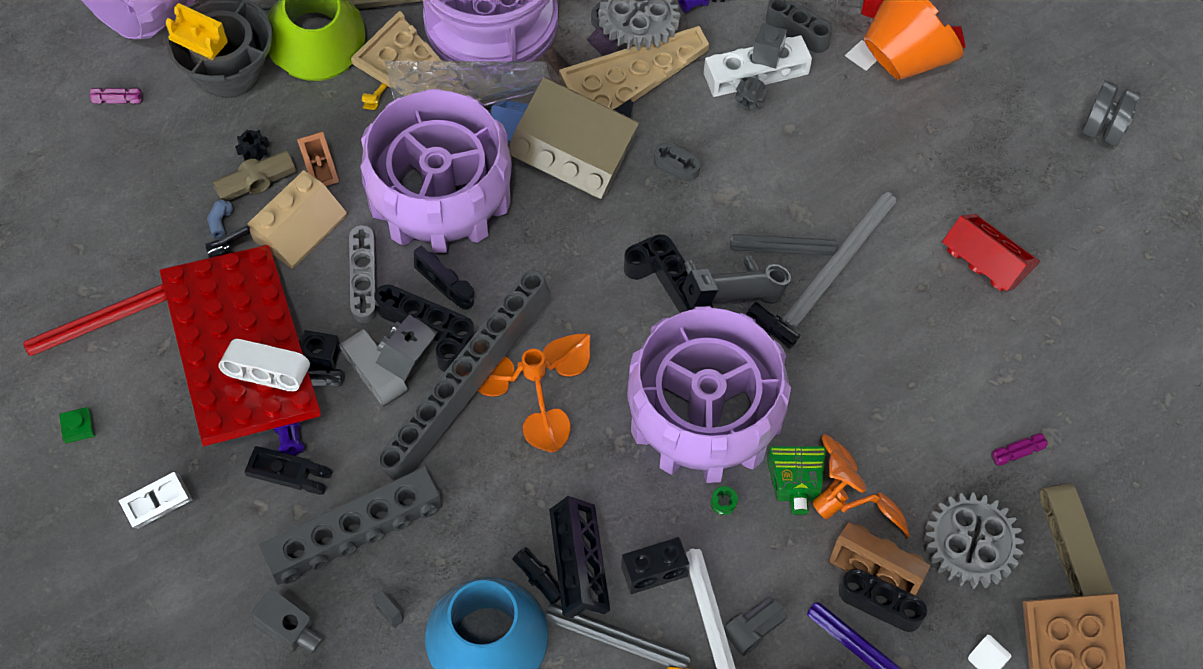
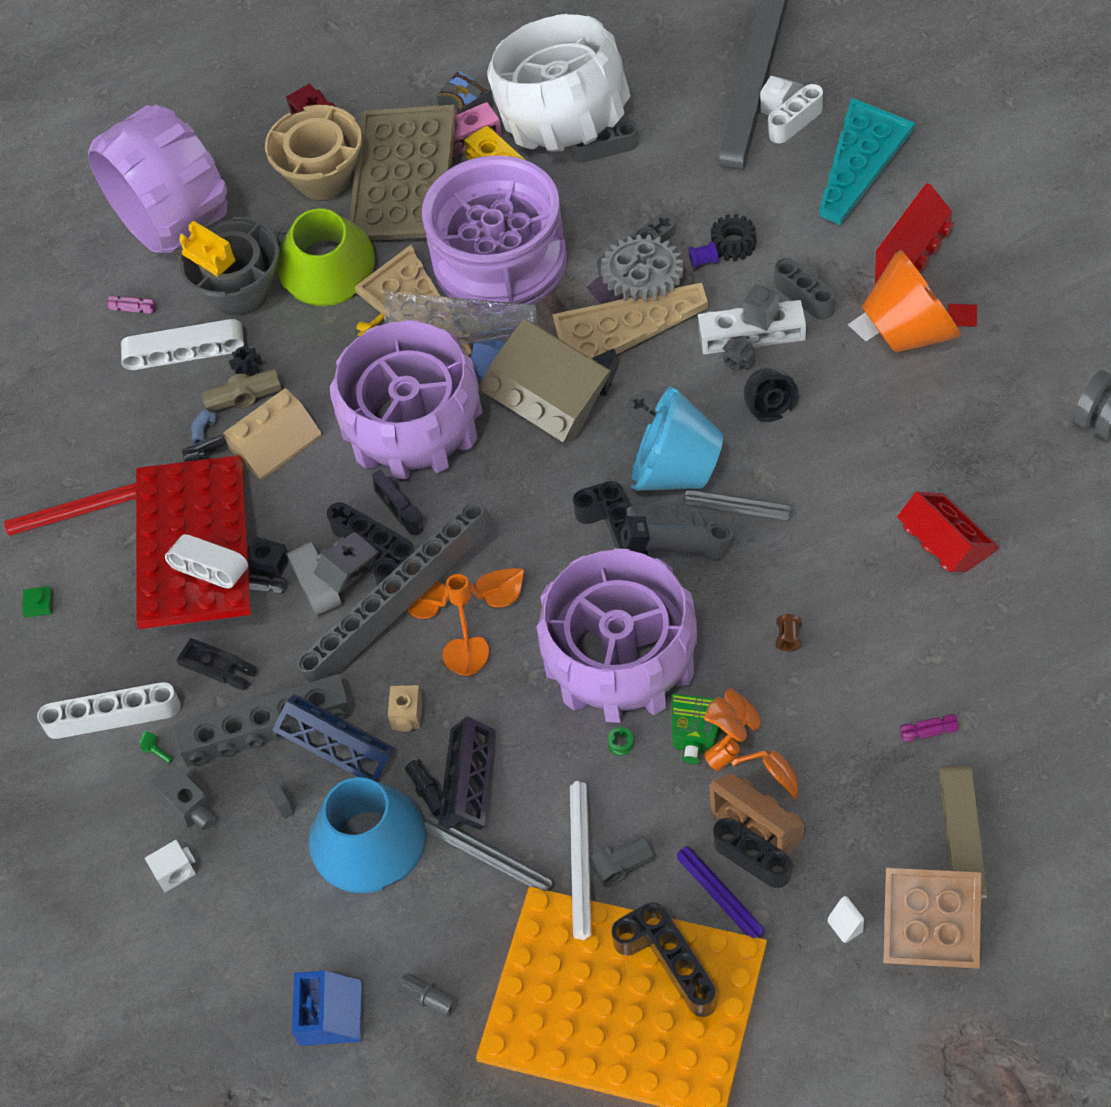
camera: 20 degrees right, 5 degrees down
(155, 500) = (91, 675): white brick -> none
(167, 532) = (96, 707): none -> white beam
(180, 133) = (181, 344): none -> white beam
(230, 567) = (147, 744): none -> green hand
(294, 442) = (230, 625): dark purple bush -> none
(318, 158) = (303, 379): nougat slope -> none
(365, 273) = (321, 491): light grey beam -> none
(437, 527) = (337, 729): none -> dark blue fence
(499, 494) = (405, 708): none -> tan brick
(655, 565) = (537, 791): black brick -> none
(717, 193) = (677, 447): none -> medium azure cone
(773, 325) = (708, 580): black pin -> none
(792, 130) = (770, 393): none -> black cylinder
(839, 260) = (790, 525): light grey axle -> none
(864, 369) = (788, 632): none -> reddish brown bush
(1000, 549) = (832, 797): light grey gear -> none

